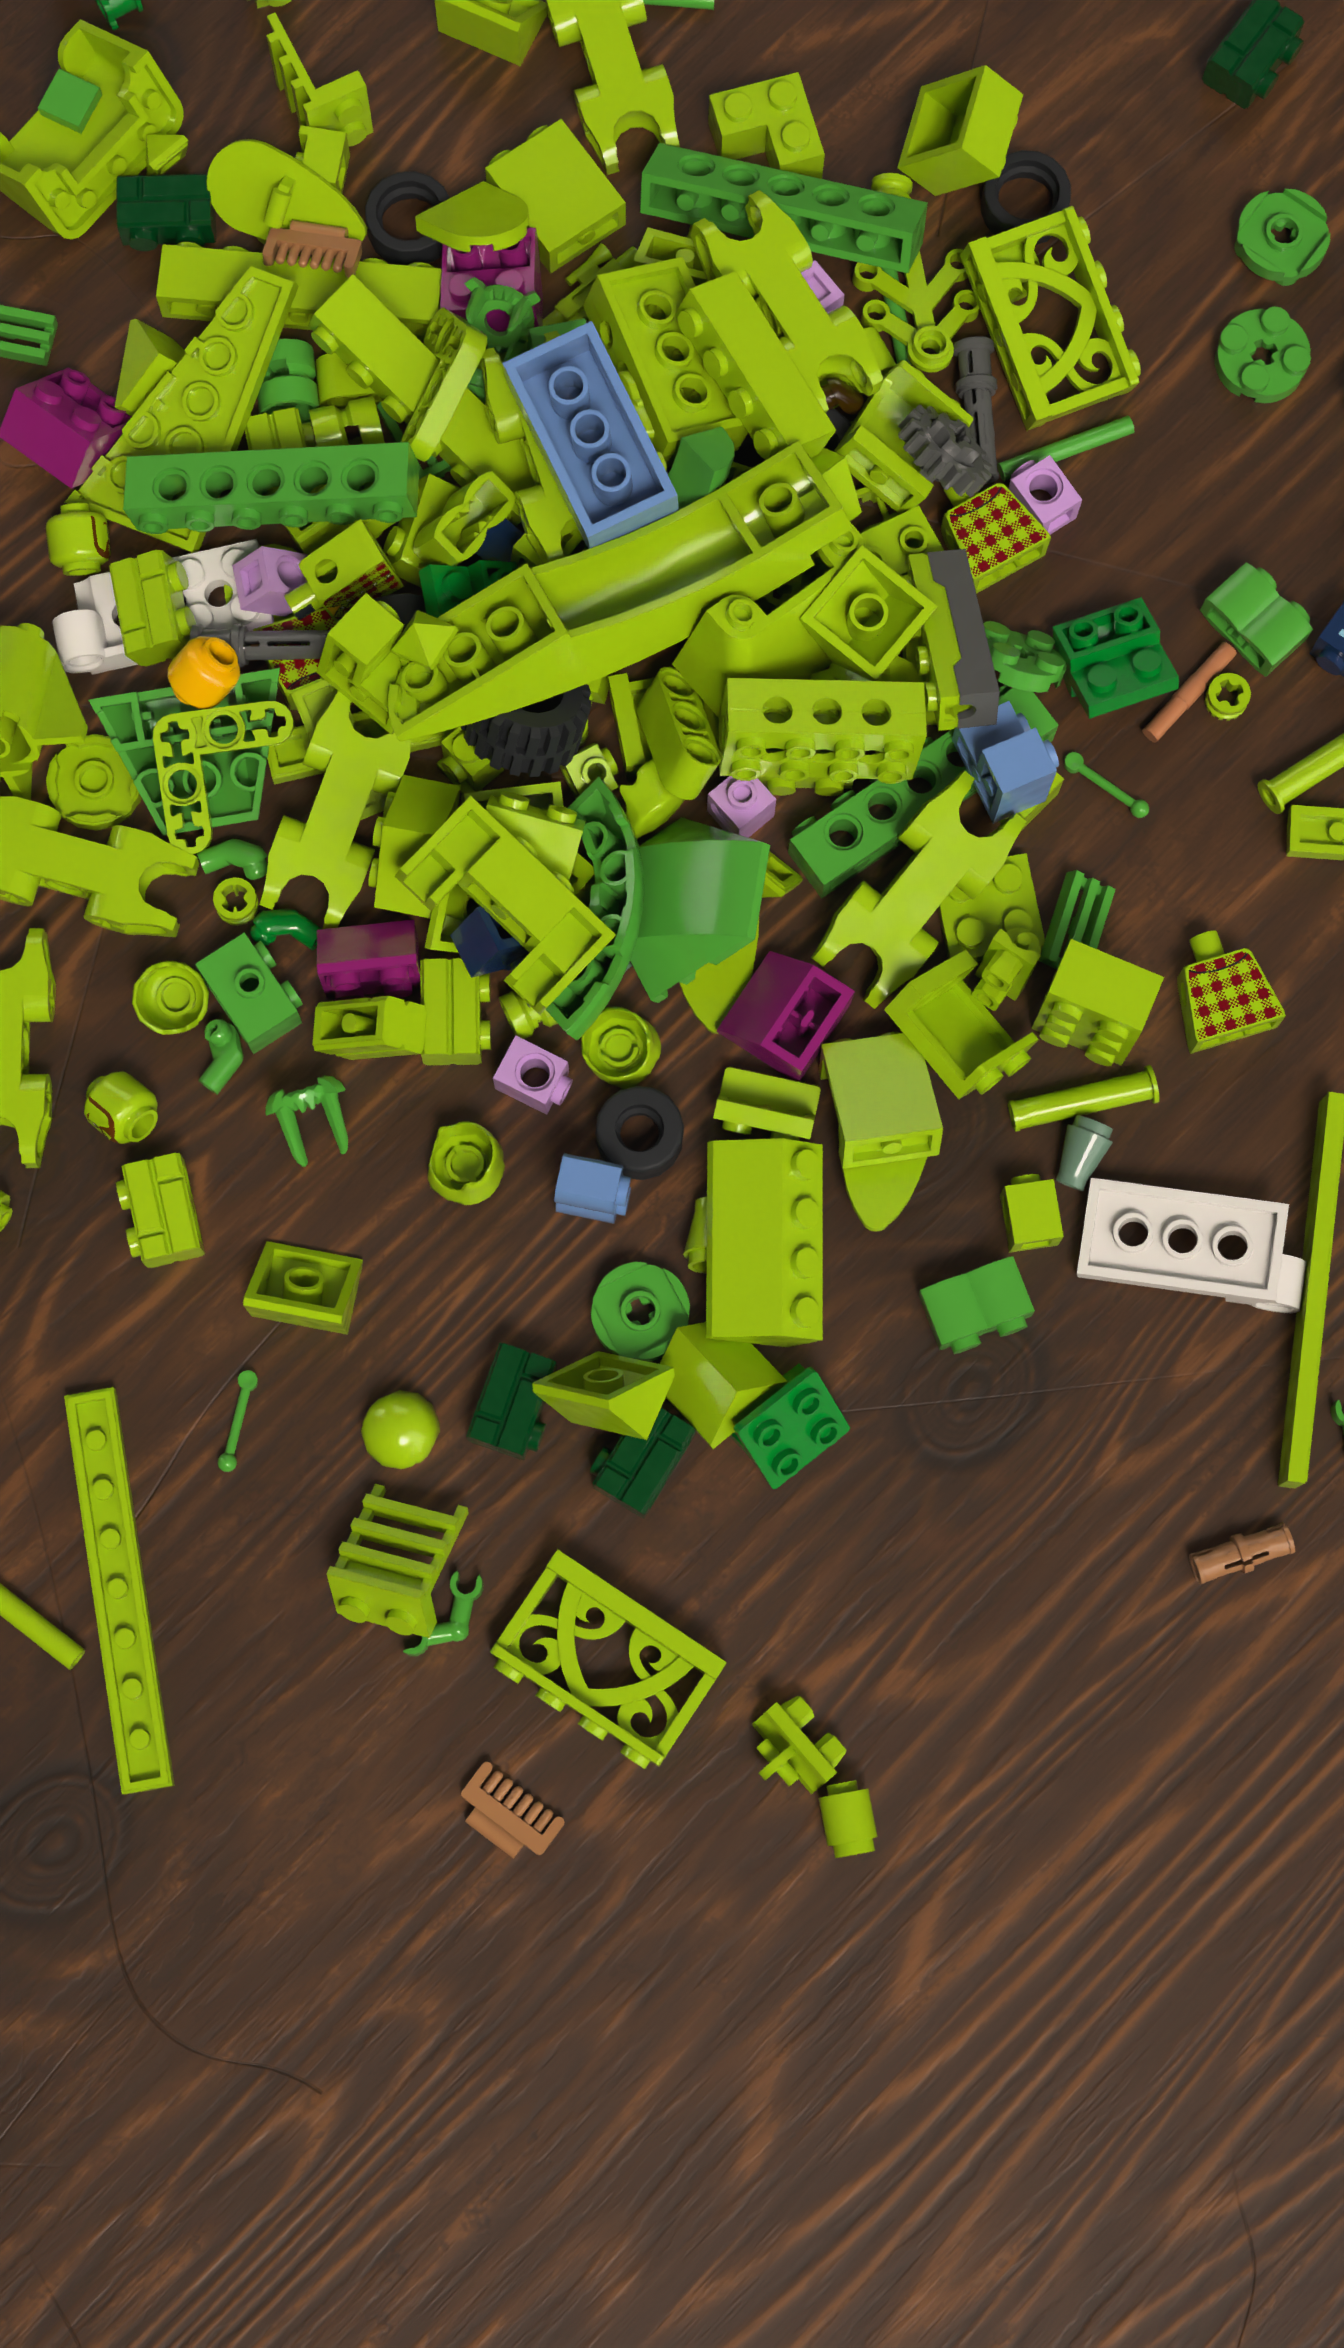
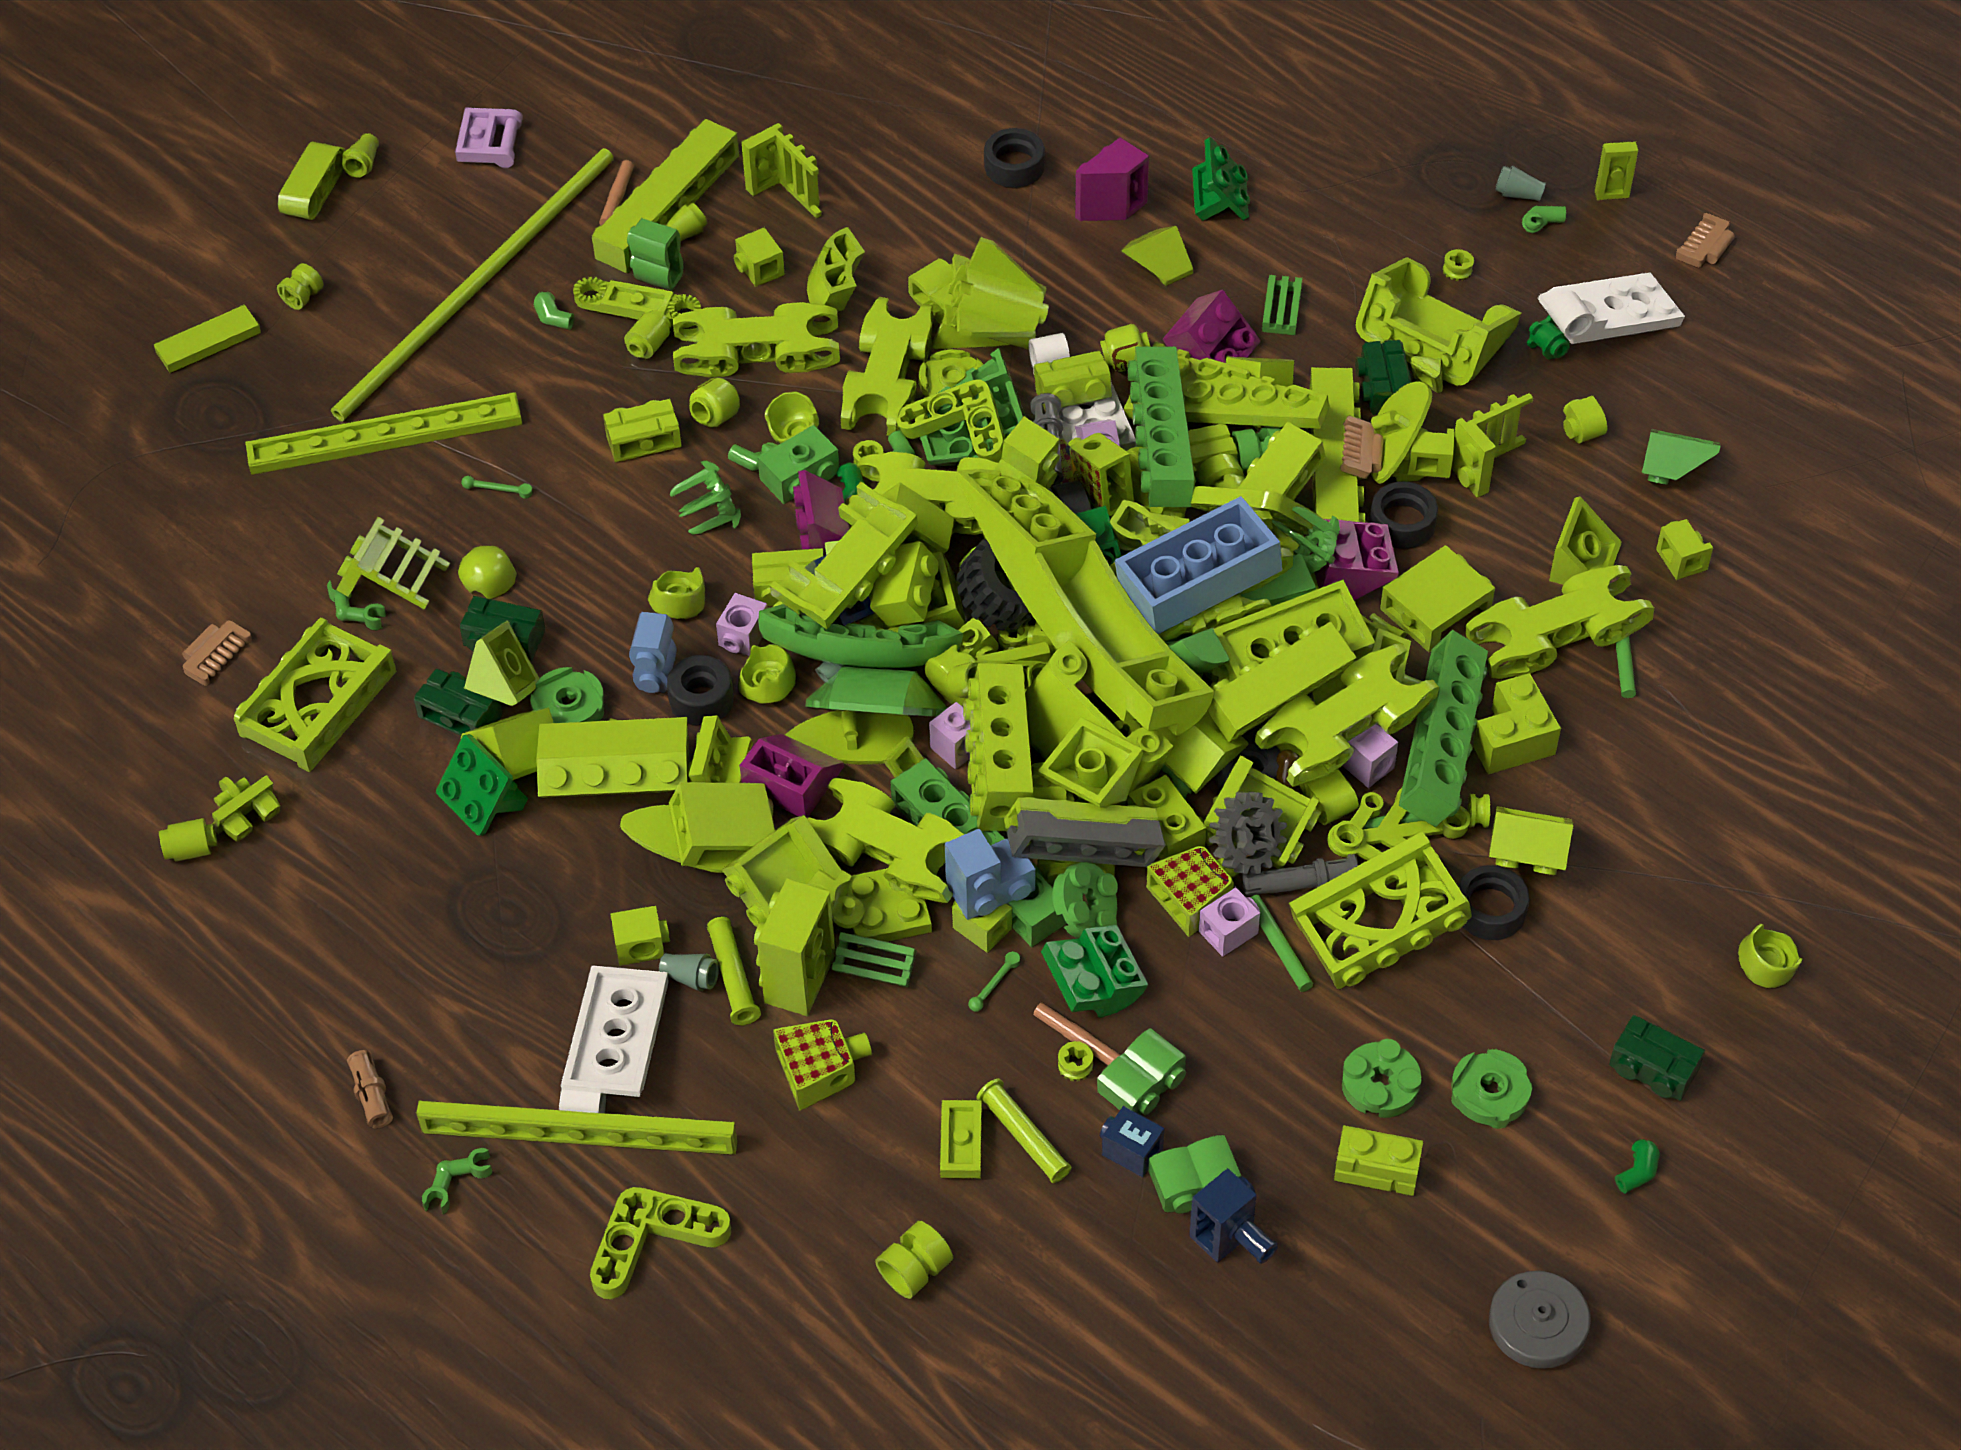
camera: 90 degrees right, 25 degrees down
(70, 101) = (1461, 317): bright green tile -> none
(204, 672) = (1018, 399): yellow head -> none
(304, 1287) = (585, 508): lime slope -> none
(369, 1028) = (768, 520): lime brick -> none
(424, 640) = (1034, 482): lime slope -> none
(476, 218) = (1397, 536): lime tile -> none
(977, 1304) = (569, 904): bright green brick -> none

